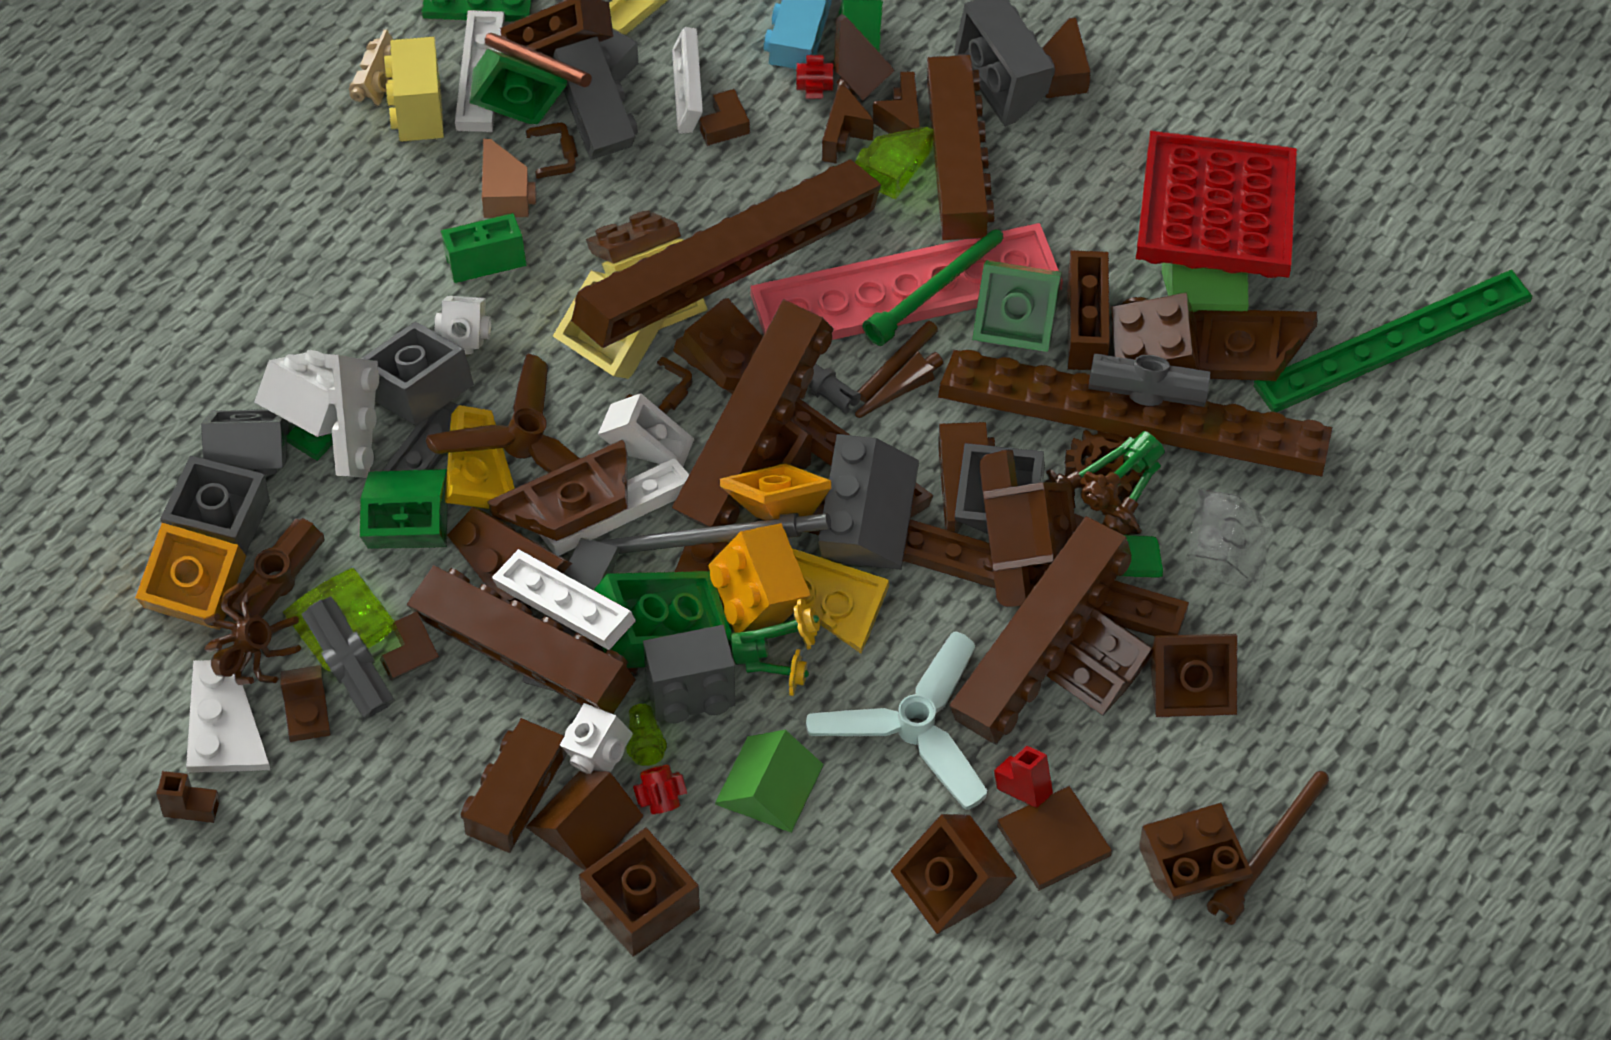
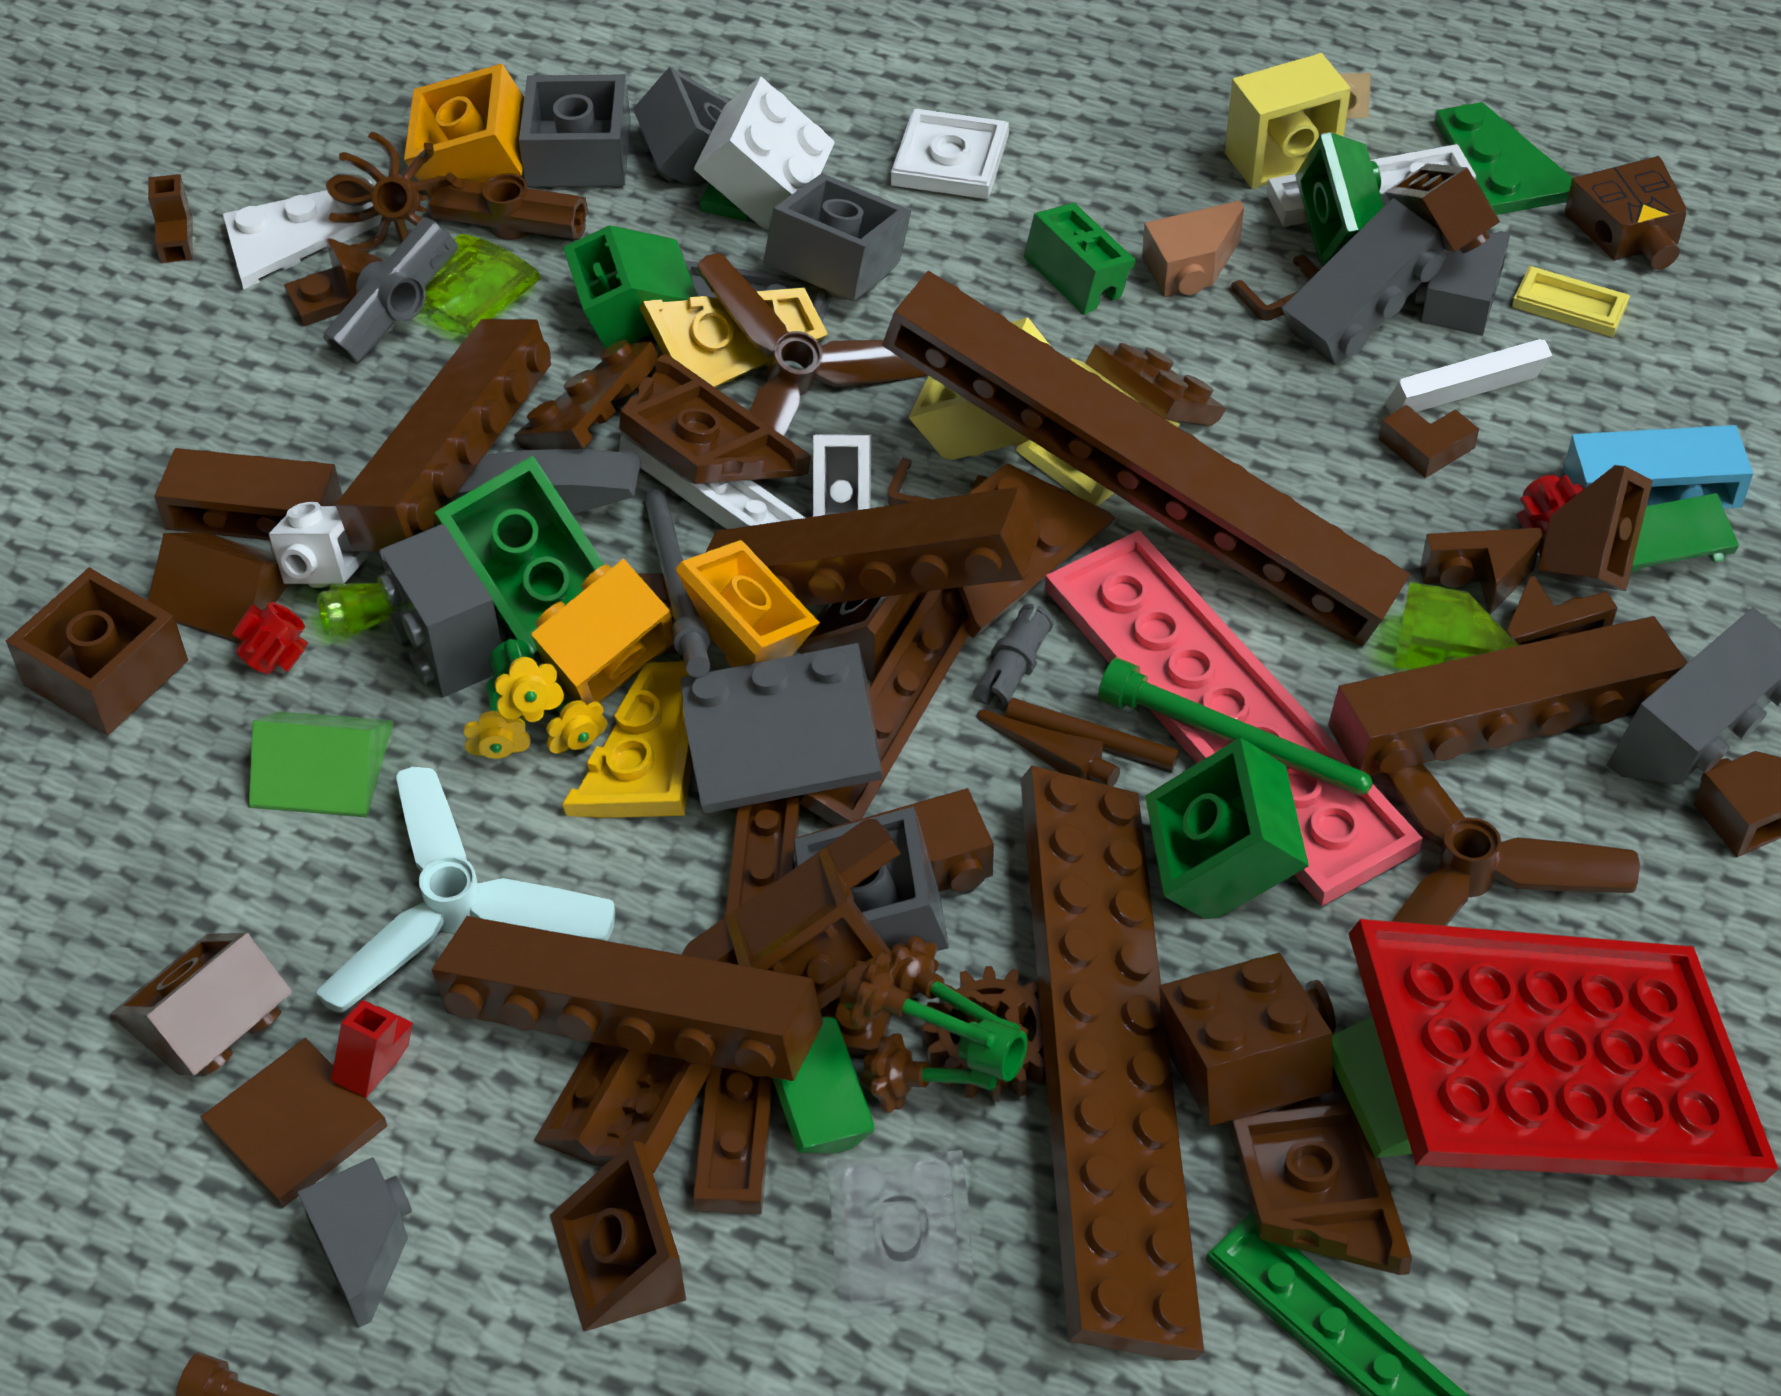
camera: 75 degrees right, 5 degrees down
(335, 293) = (950, 153): none -> white plate
(355, 401) = (737, 181): white wing -> none
(415, 647) = (428, 353): reddish brown piece -> none
(469, 312) = (946, 253): white brick -> none
(538, 59) = (1376, 197): copper bar -> none
(564, 599) = (493, 436): white plate -> none
(1059, 205) = (1476, 856): none -> reddish brown piece
(1087, 307) = (1298, 918): reddish brown brick -> none
(1145, 801) = (359, 1231): none -> dark grey slope
(1149, 380) = (1146, 1031): dark grey piece -> none
(1193, 852) = (269, 1308): reddish brown slope -> none

